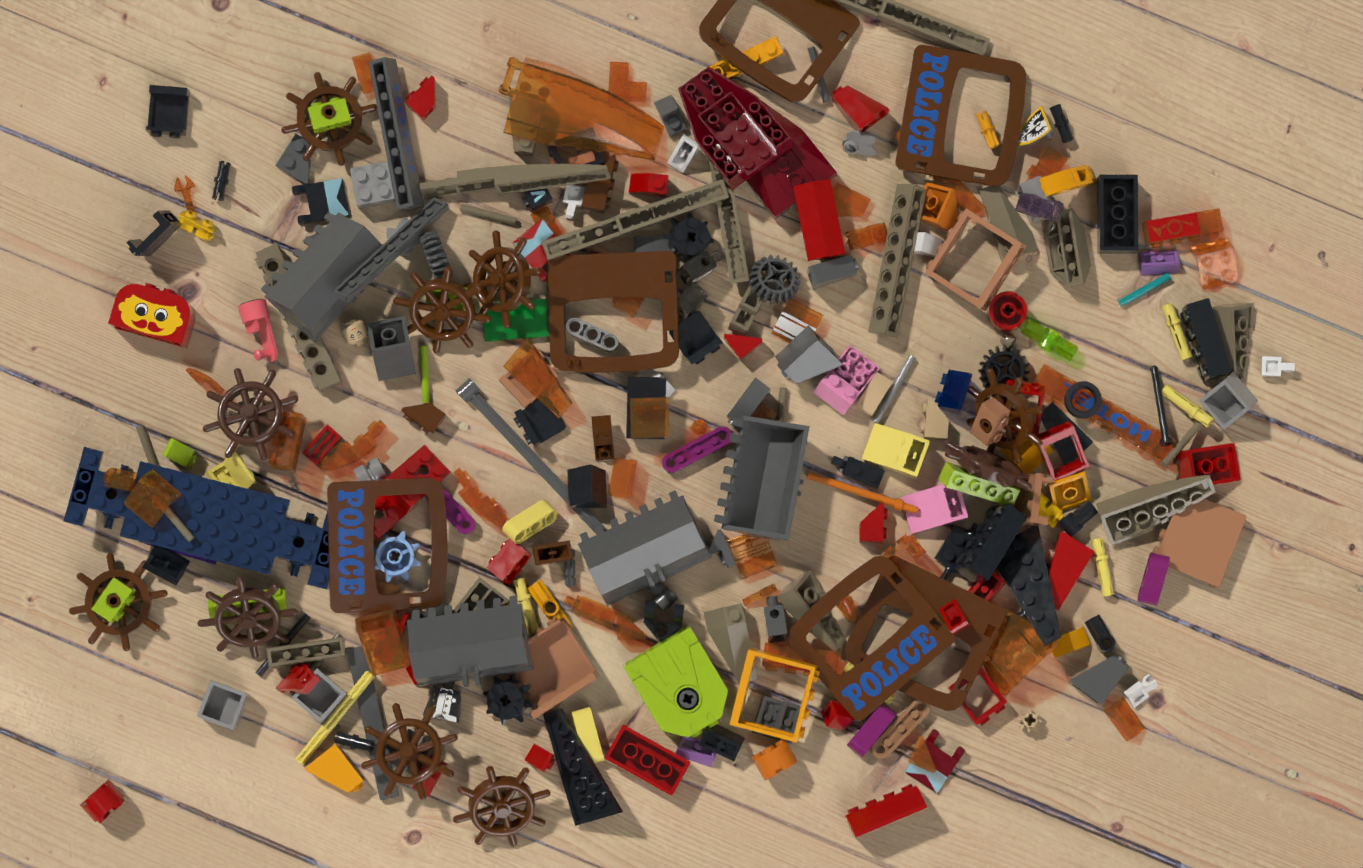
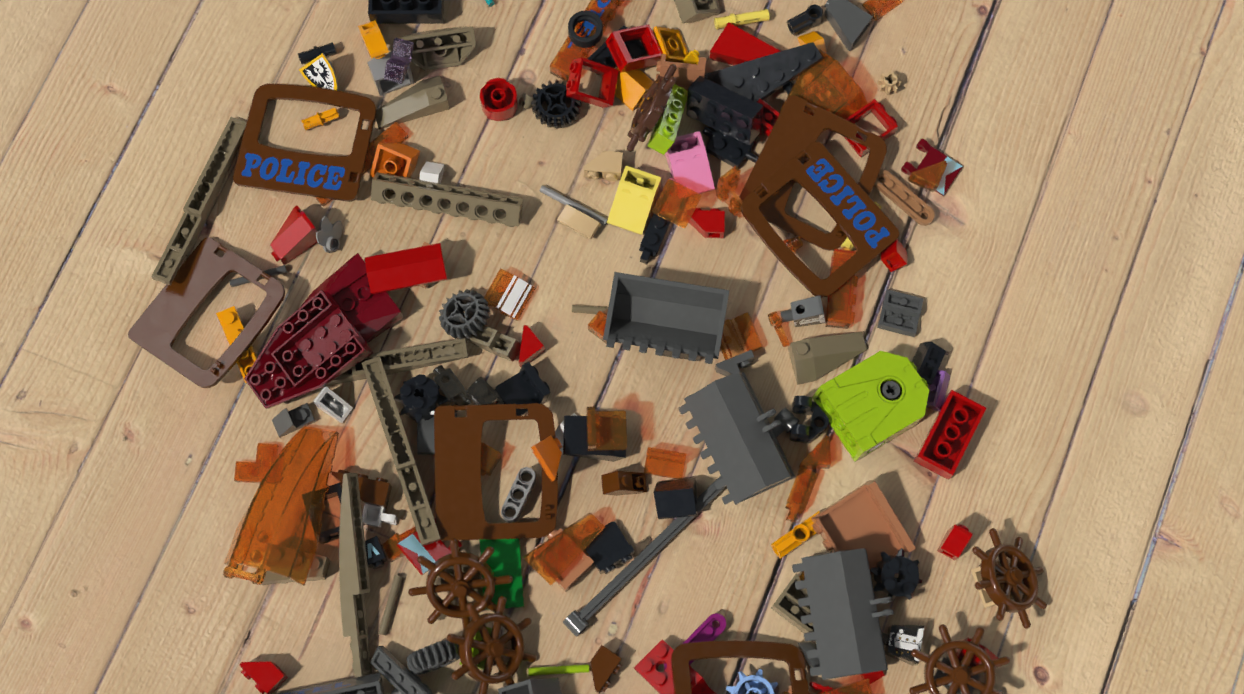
camera: 90 degrees left, 10 degrees down
(483, 507) = (698, 604): clear orange slope -> none
(509, 561) = (753, 577): red brick -> none
(524, 599) = (787, 562): light yellow pin -> none
(530, 521) = (713, 554): light yellow beam -> none
(552, 553) = (744, 531): reddish brown slope -> none
(570, 571) = (757, 516): dark grey axle -> none
(583, 783) = (979, 497): black wing -> none
(588, 733) = (928, 495): light yellow beam -> none
(624, 360) = (548, 455): none -> orange slope
(649, 184) = (363, 439): red slope -> none
(696, 449) = (635, 390): magenta plate -> none
(699, 427) = (612, 388): clear orange hinge -> none
(743, 689) = (893, 281): light orange window -> none
(749, 401) = (587, 338): dark grey slope -> none
(774, 759) = (942, 311): orange brick -> none
(800, 597) = (782, 287): dark tan wedge -> none
(806, 357) = (543, 282): slope -> none
(832, 271) = (457, 261): dark grey slope -> none
(845, 383) = (565, 248): bright pink slope -> none
(849, 202) = (388, 242): clear orange wing -> none
(866, 236) = (422, 228): clear orange slope -> none
(871, 730) = (908, 224): magenta beam -> none
(885, 811) = (986, 208): red slope -> none
(890, 492) = (676, 203): none -> clear orange bracket
(898, 504) = (672, 242): orange bar -> none
(953, 391) = (576, 145): clear blue slope -> none
(954, 617) = (798, 140): red slope -> none
(994, 415) = (610, 102): reddish brown brick -> none
(1000, 274) = (437, 156): nougat window -> none
(1049, 163) = (355, 63): clear orange slope -> none
(1049, 339) = (526, 63): clear neon green piece -> none
(1074, 521) = (696, 39): black piece -> none

